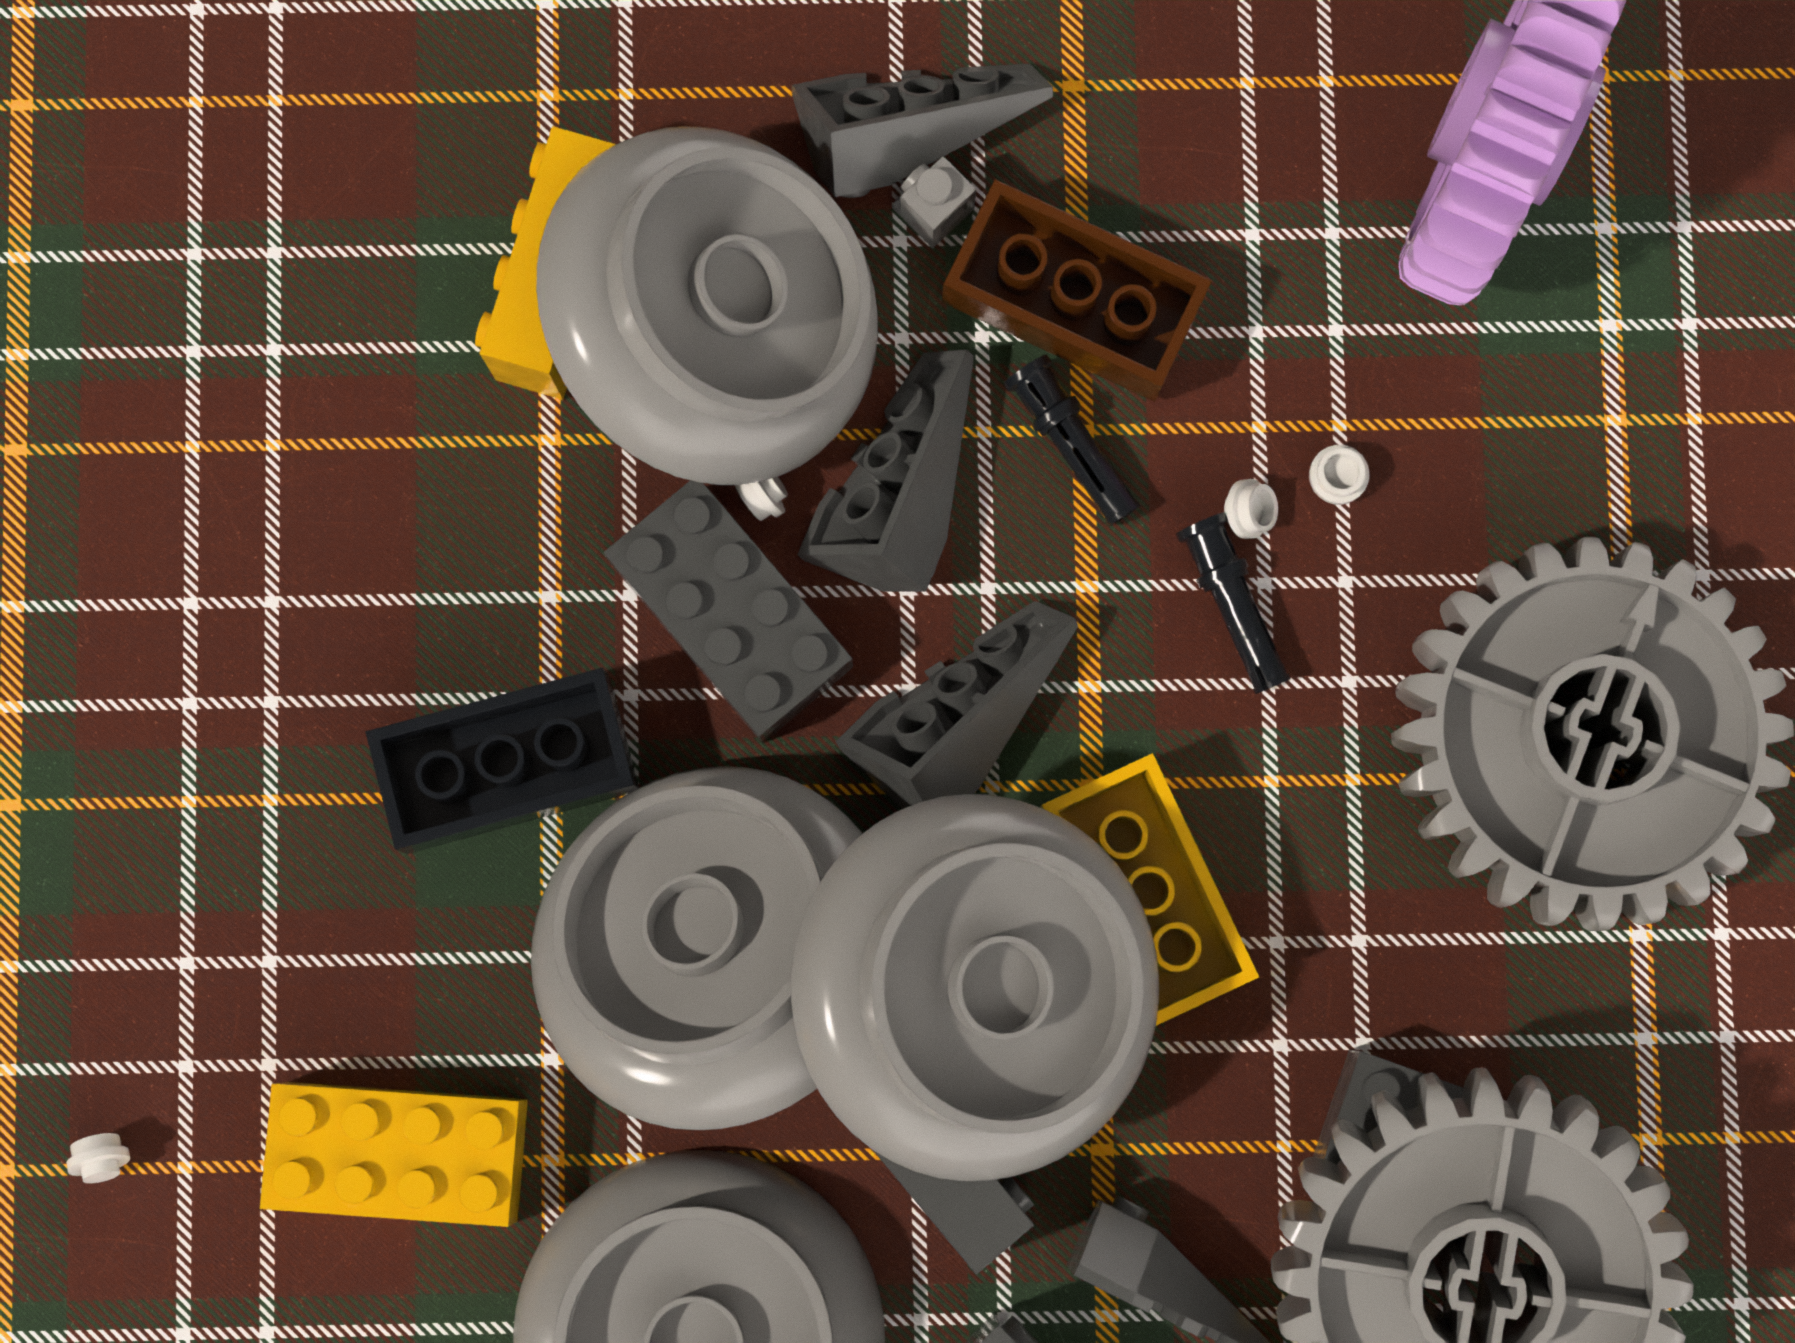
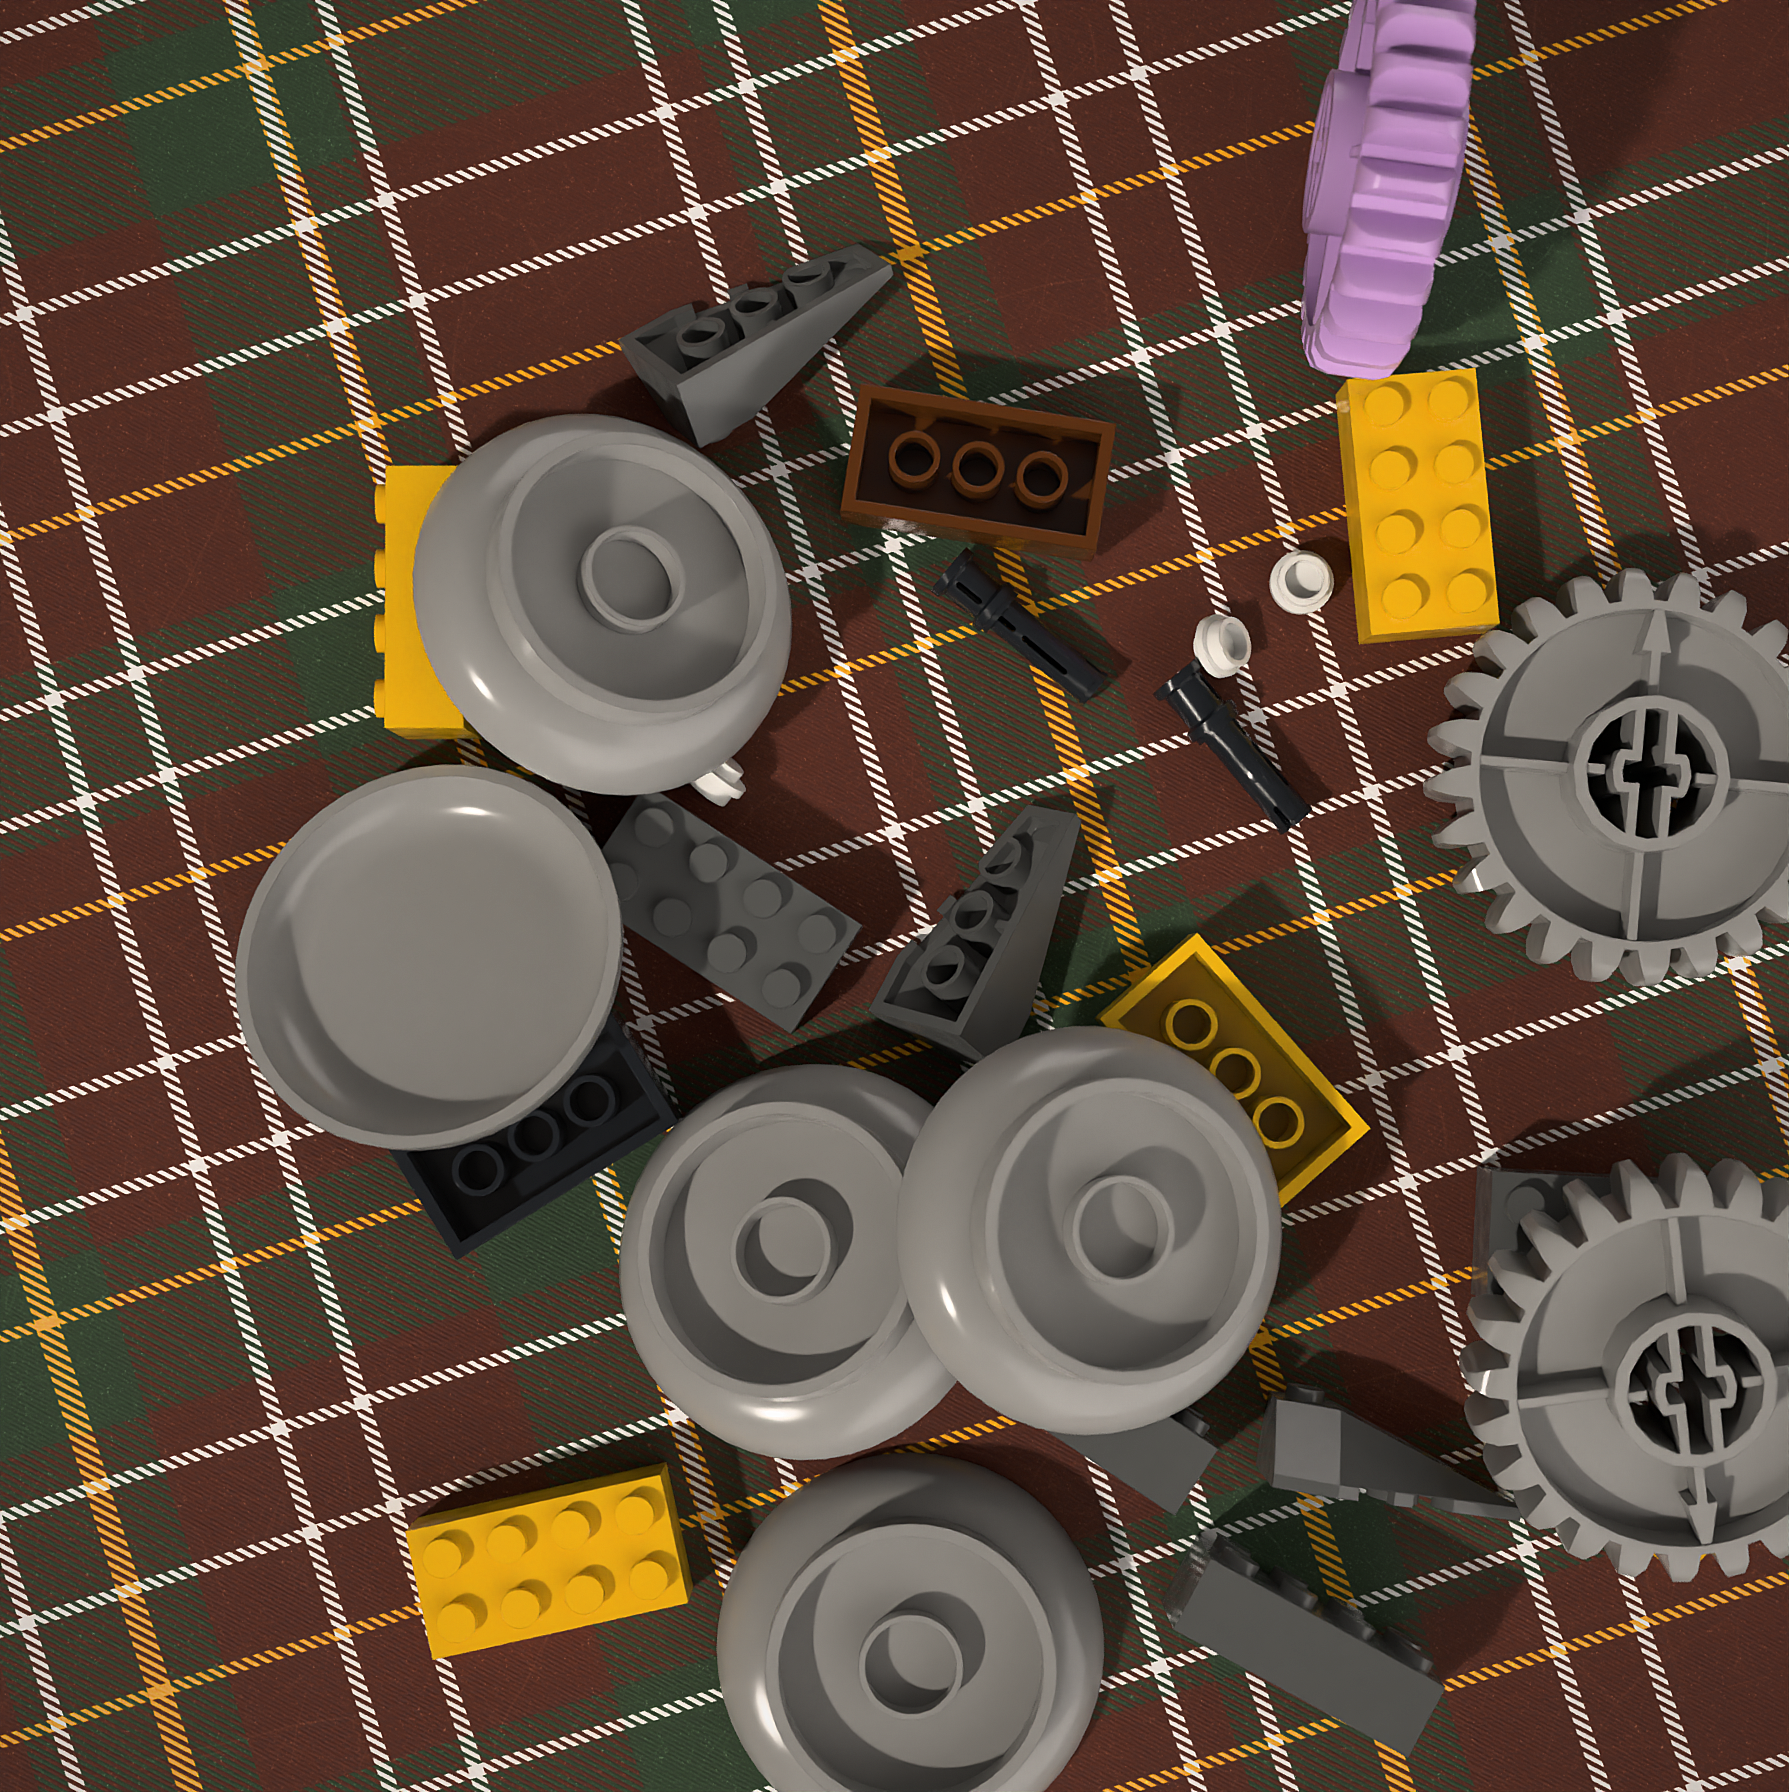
camera: 15 degrees left, 5 degrees up
(97, 1157) = (252, 1653): white plate -> none
(455, 568) = (429, 958): none -> light grey dish
(898, 501) = (858, 746): dark grey wedge -> none
(935, 200) = (803, 419): light grey brick -> none
(1462, 436) = (1417, 506): none -> yellow brick

